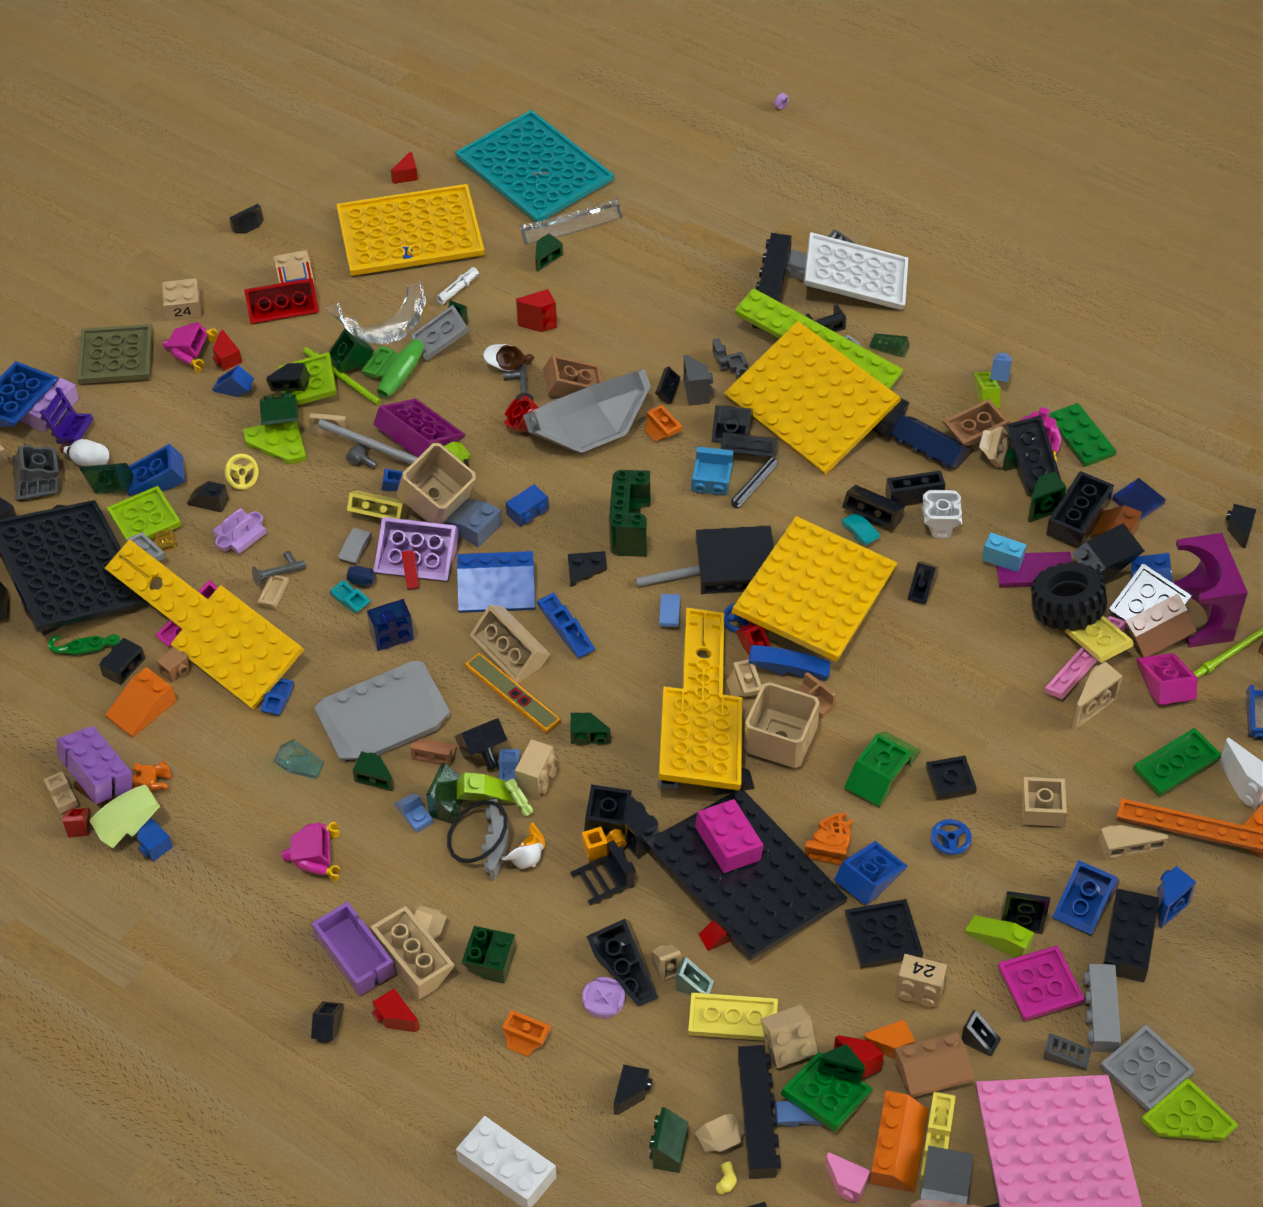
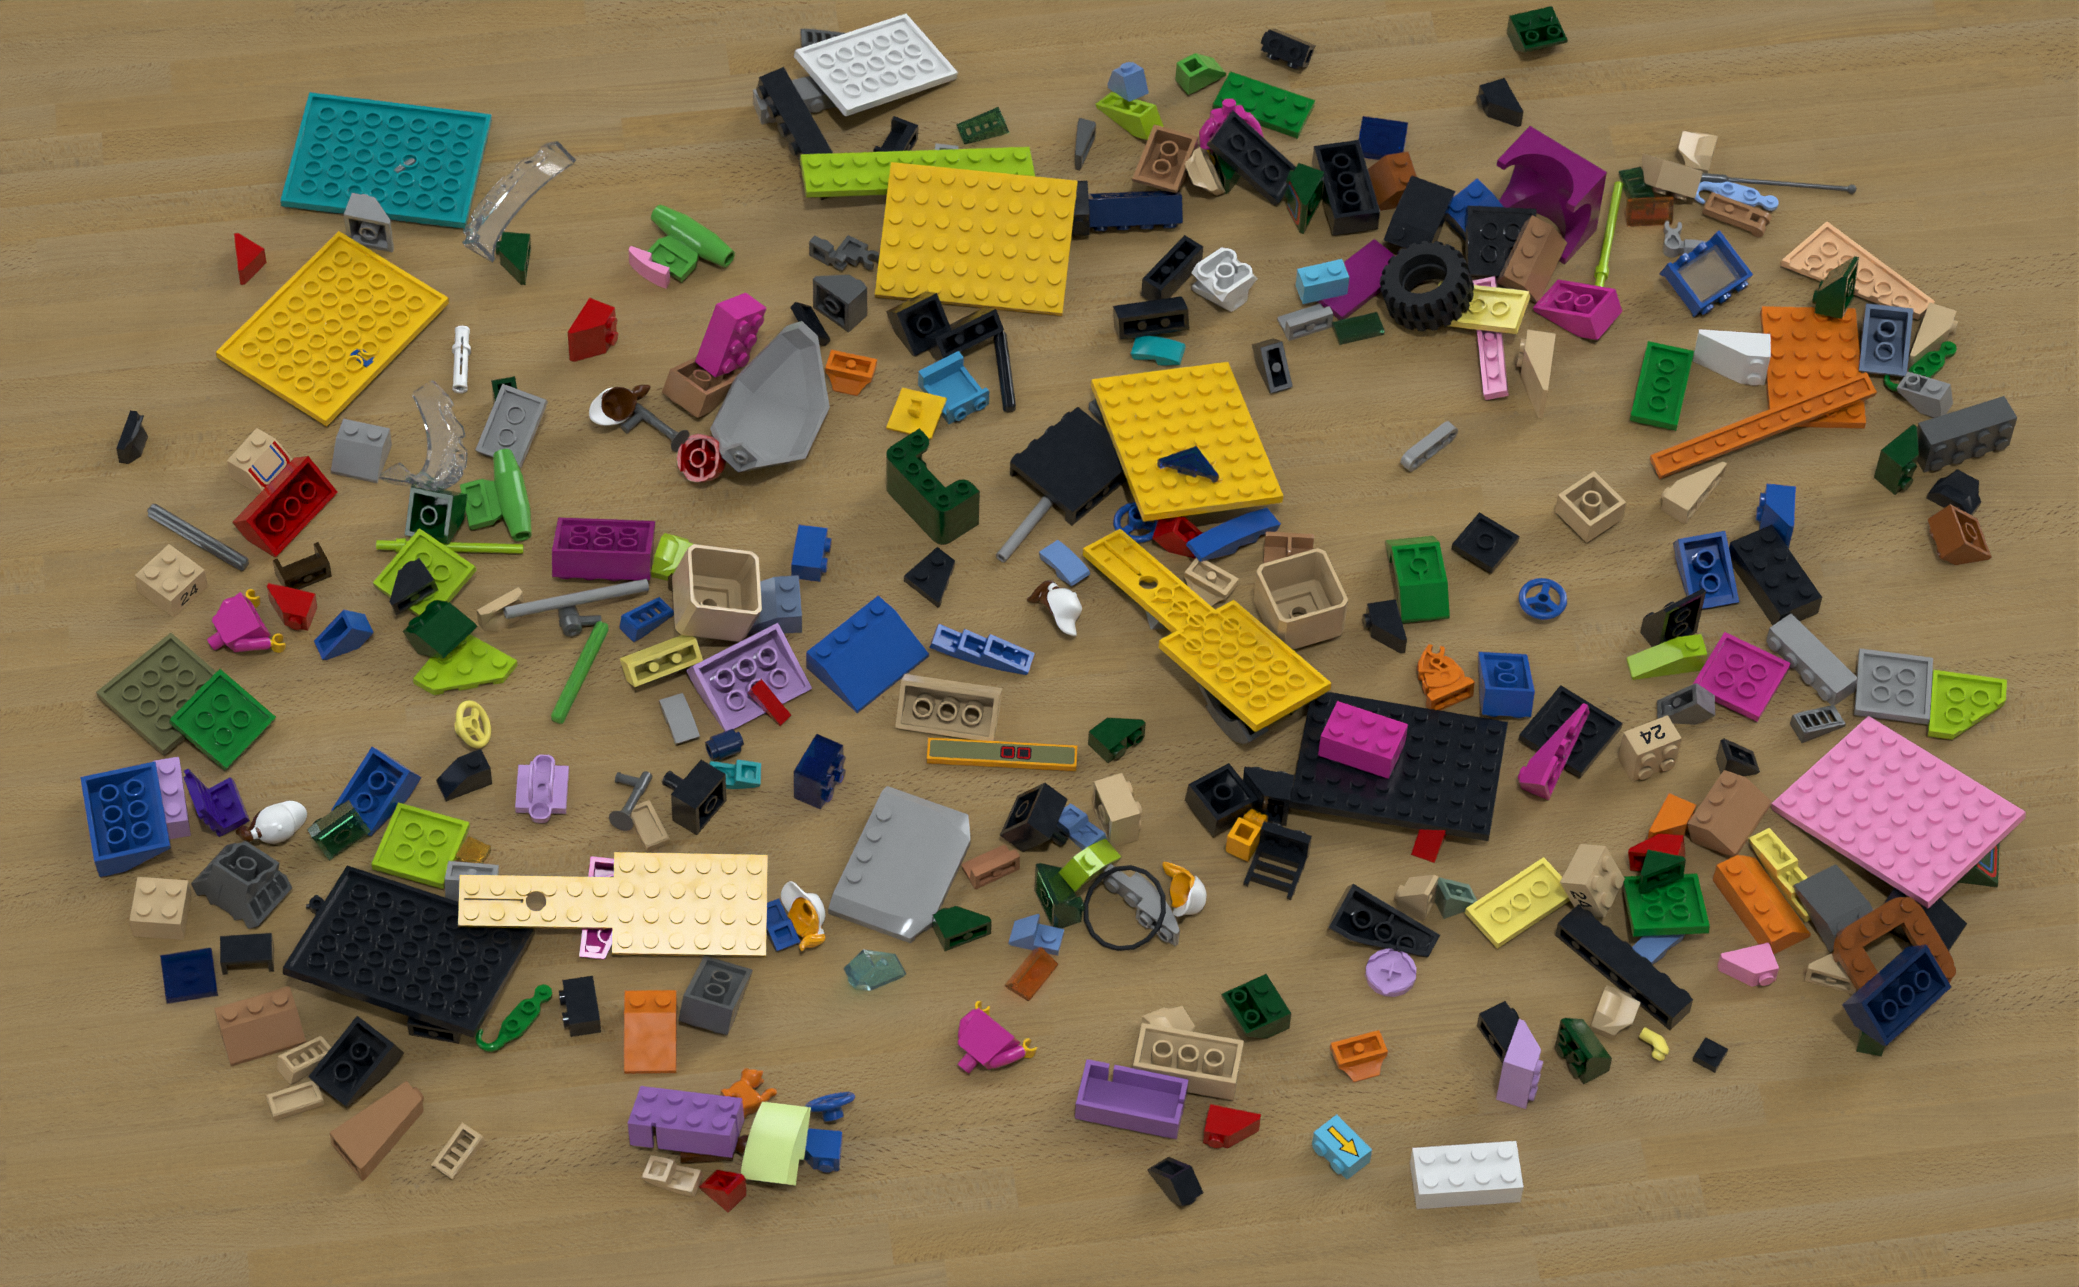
camera: 45 degrees left, 5 degrees up
(121, 382) = (222, 719): none -> green plate
(173, 664) = (638, 970): medium nougat brick -> none
(184, 817) = (831, 1105): none -> blue piece
(197, 708) = (714, 995): none -> dark grey slope
(223, 288) = (198, 537): none -> dark grey axle
(252, 340) = (305, 571): none -> dark brown panel
(298, 702) = (806, 914): none -> light orange hair
(309, 591) = (696, 796): none -> black brick
(332, 485) = (579, 672): none -> bright green axle
(353, 296) = (361, 450): none -> light grey slope
(387, 832) = (1032, 974): none -> clear orange slope
(448, 1081) = (1341, 1147): none -> medium azure brick
(482, 186) = (368, 223): none -> light grey slope
(519, 797) = (1125, 848): yellowish green axle -> none
(604, 355) = (730, 334): none -> dark pink brick
(605, 1117) = (1520, 1068): none -> lavender slope
(611, 301) = (653, 272): none -> bright pink slope
(636, 633) = (1061, 604): none -> white hair
(649, 300) = (686, 243): none -> bright green plate
(676, 471) = (916, 411): none -> yellow piece
(794, 596) = (1190, 463): none -> clear blue tile
(830, 780) = (1385, 624): none -> black slope
(845, 939) = (1548, 763): none -> dark pink wedge
(941, 386) = (1085, 137): none -> dark grey slope
(973, 572) = (1306, 321): none -> light grey panel
(981, 974) = (1687, 705): none -> flat silver slope
(987, 694) = (1429, 446): none -> light grey beam
(1005, 597) = (1358, 328): none -> clear green tile
(1055, 390) = (1197, 72): none -> bright green slope
(1128, 410) = (1287, 47): none -> black brick

